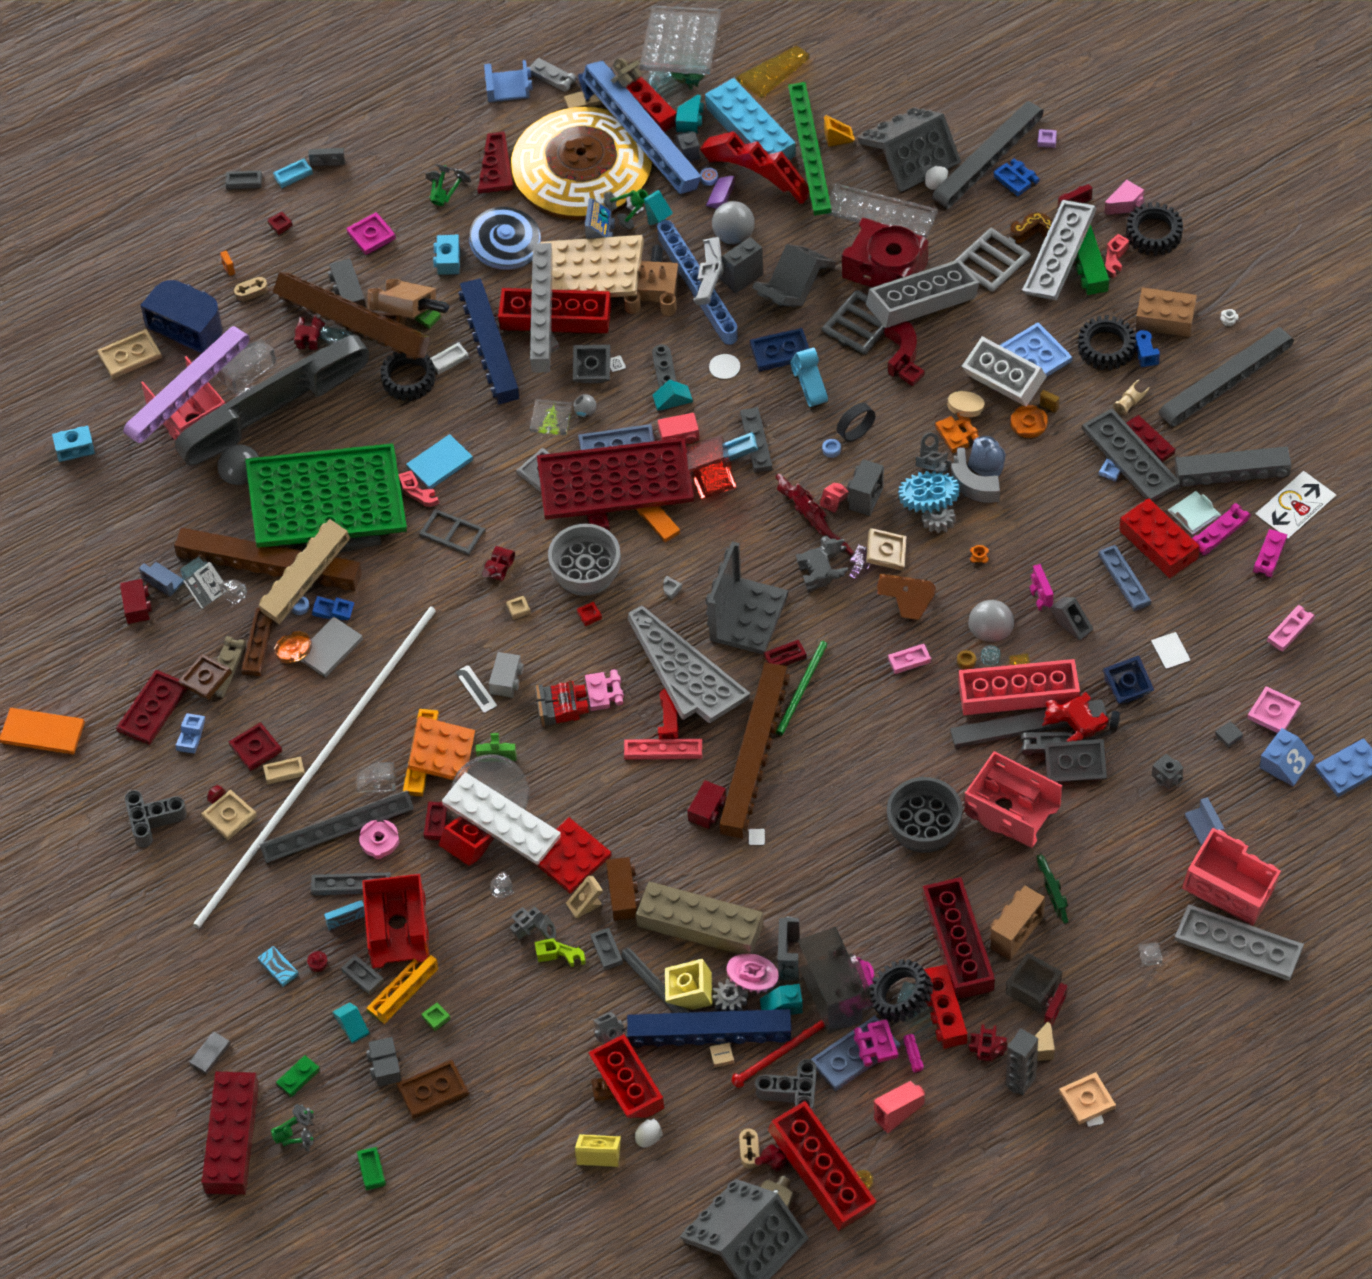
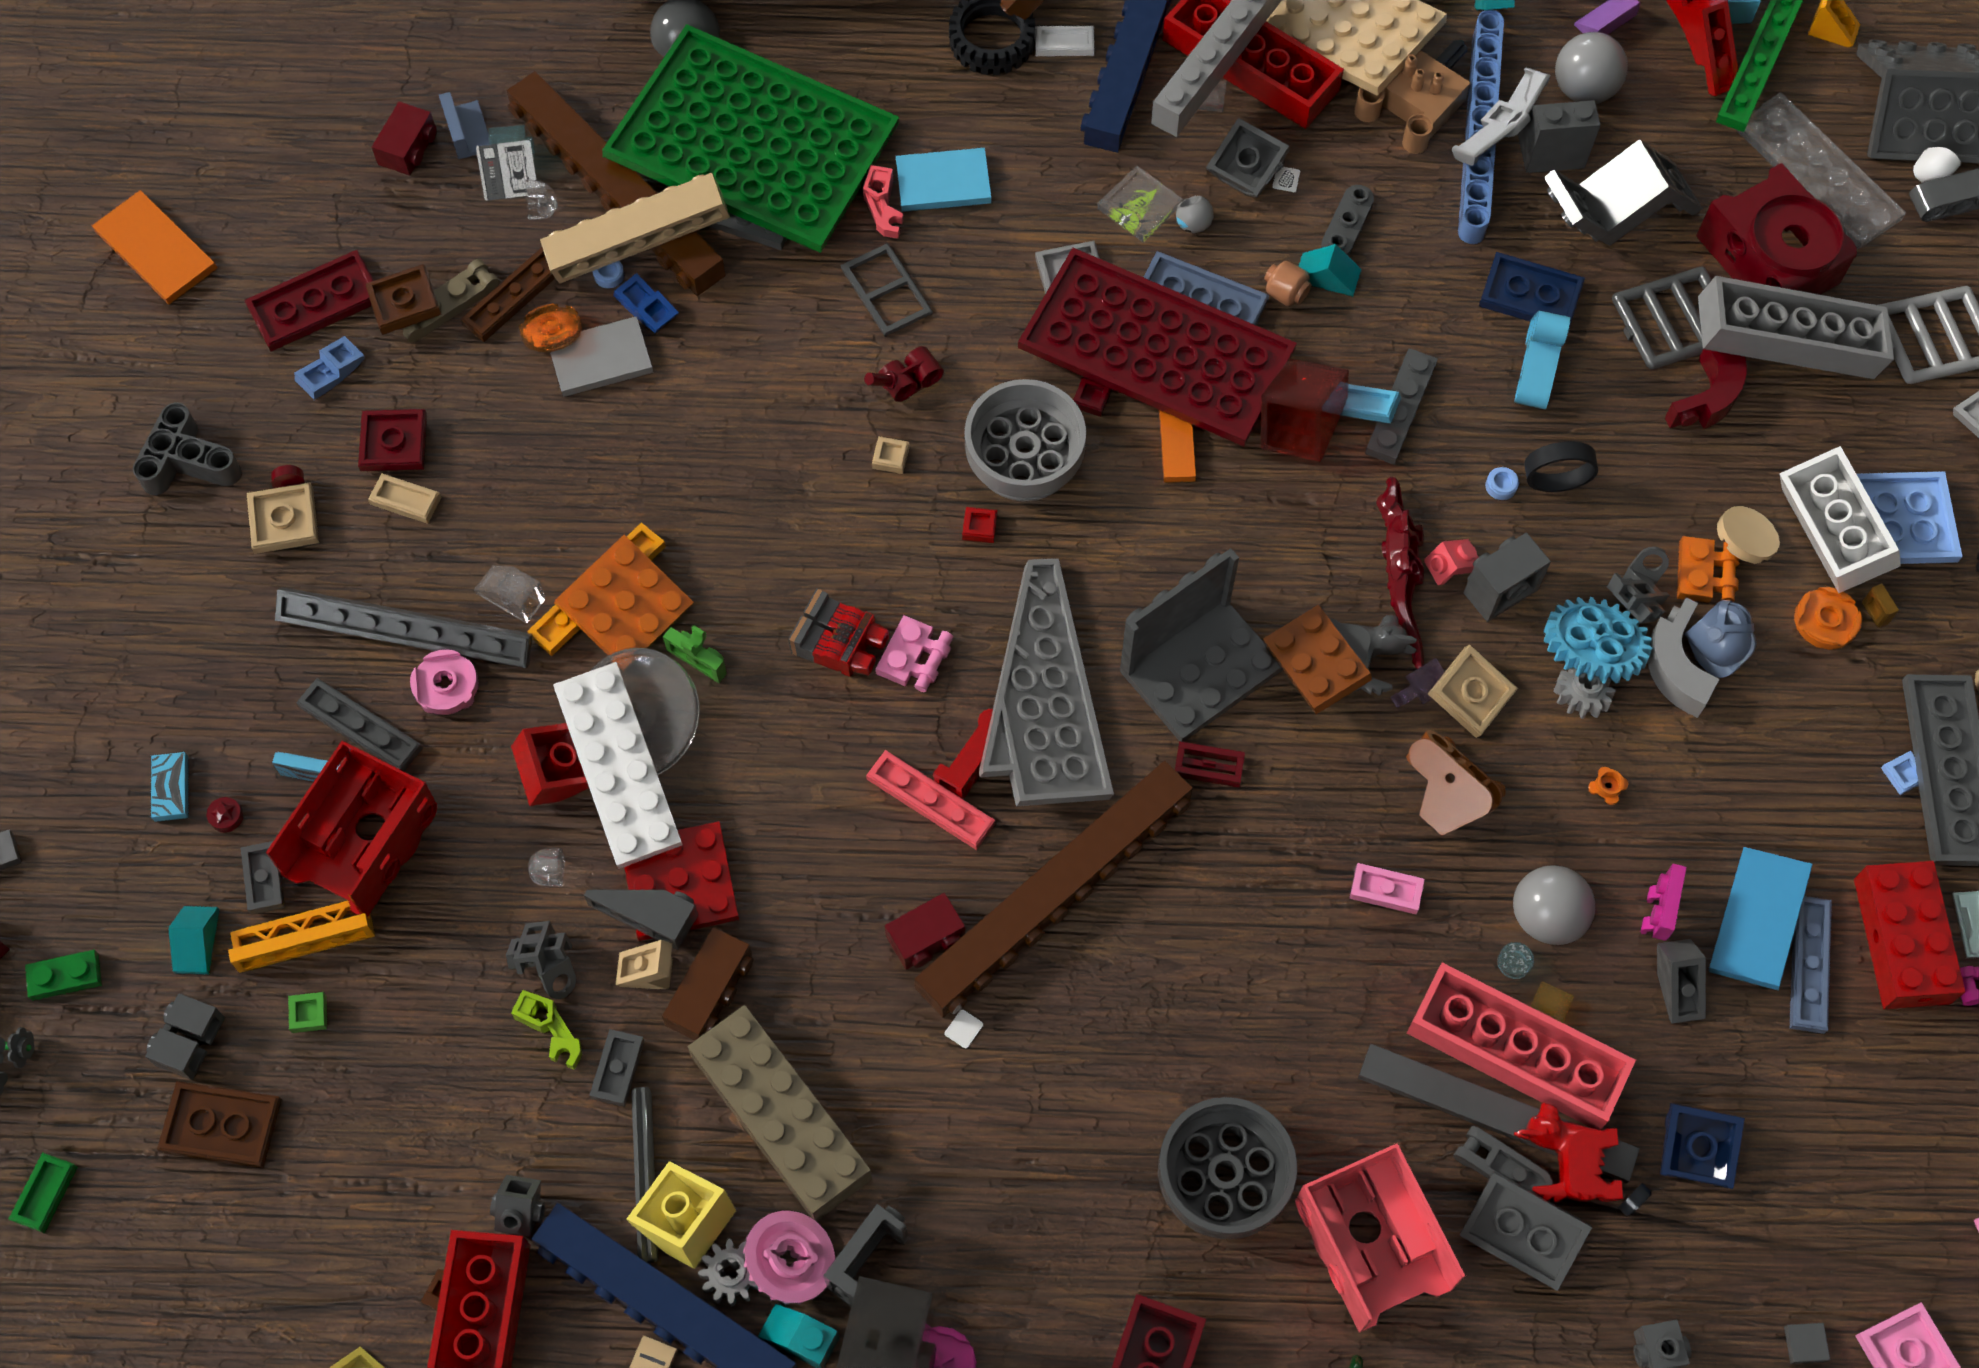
camera: 30 degrees right, 10 degrees up
(314, 767) = (444, 520): white piece -> none
(435, 820) = (535, 706): dark red plate -> none
(476, 688) = (746, 540): sticker -> none
(505, 674) = (795, 545): light grey brick -> none
(567, 872) = (649, 911): none -> dark grey slope
(656, 410) = (1287, 283): none -> nougat head
(671, 587) = (1122, 556): light grey tile -> none
(679, 427) = (1303, 324): coral brick -> none
(724, 366) = (1435, 270): white sticker -> none
(801, 688) = (1196, 832): green piece -> none
(803, 575) = (1317, 659): none -> dark orange plate
(911, 373) = (1698, 439): dark red plate -> none
(966, 660) = (1473, 944): pearl gold tile -> none
(1088, 570) = (1760, 918): none -> dark azure tile
(1170, 650) = (1806, 1133): white sticker -> none

